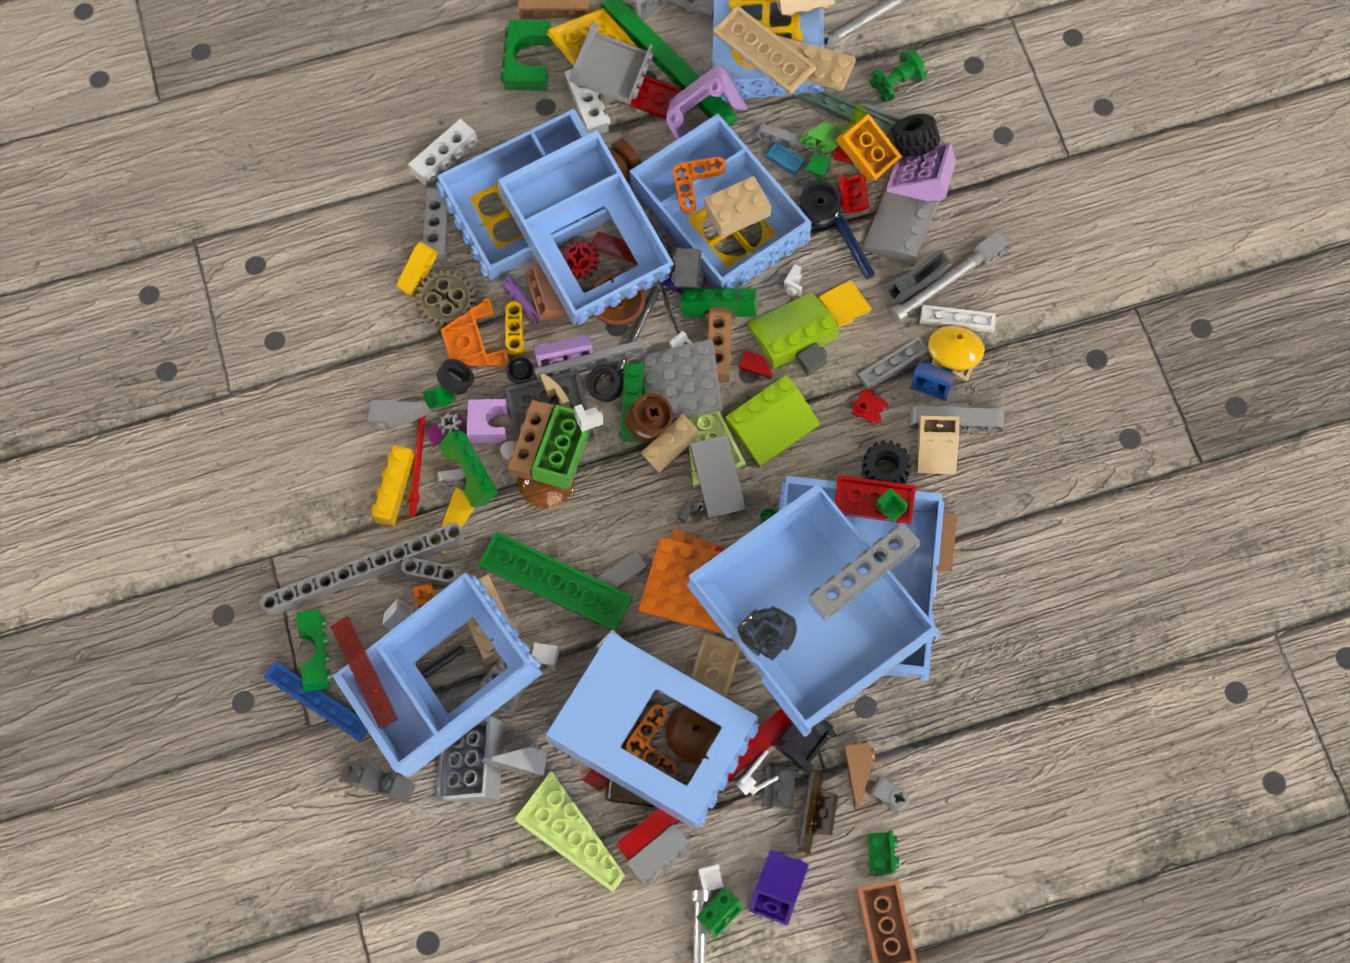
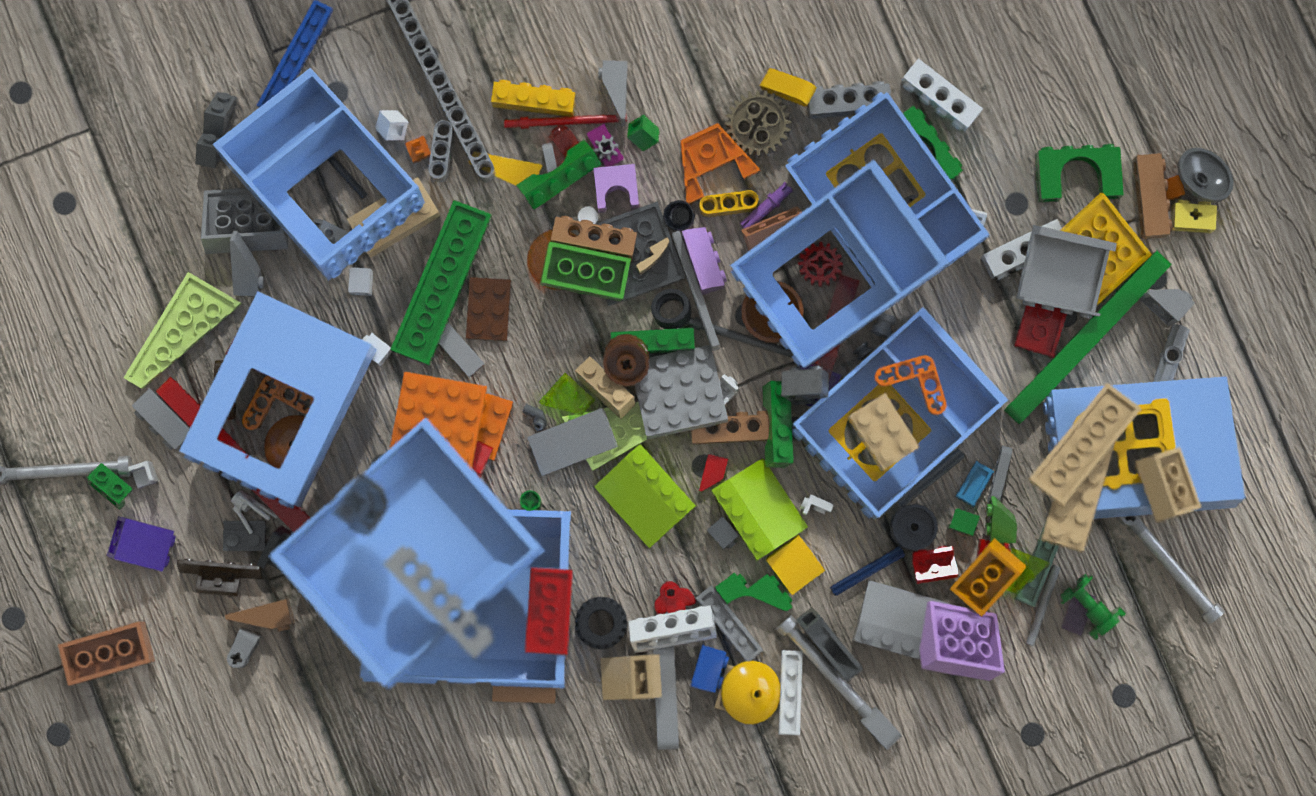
camera: 80 degrees right, 15 degrees up
(314, 672) = (319, 50): green arch -> none
(364, 672) = (311, 98): clear red tile -> none
(435, 463) = (563, 139): none -> clear red bracket
(449, 382) = (674, 153): black tyre -> none
(585, 544) = (488, 309): none -> reddish brown plate
(589, 418) = (615, 294): white panel -> none
(624, 156) = (944, 295): reddish brown wheel -> none
(675, 479) = (567, 396): none -> clear neon green wing
(714, 83) = (1040, 396): lavender windscreen -> none
(716, 663) = (357, 454): tan tile -> none
(864, 330) = (764, 589): none -> green arch
(882, 853) = (183, 644): green bracket -> none
(891, 505) = (537, 628): green panel -> none
(902, 411) = (666, 636): none -> white brick
(906, 93) = (1075, 617): none -> clear purple plate
(915, 135) = (1024, 628): black tyre -> none

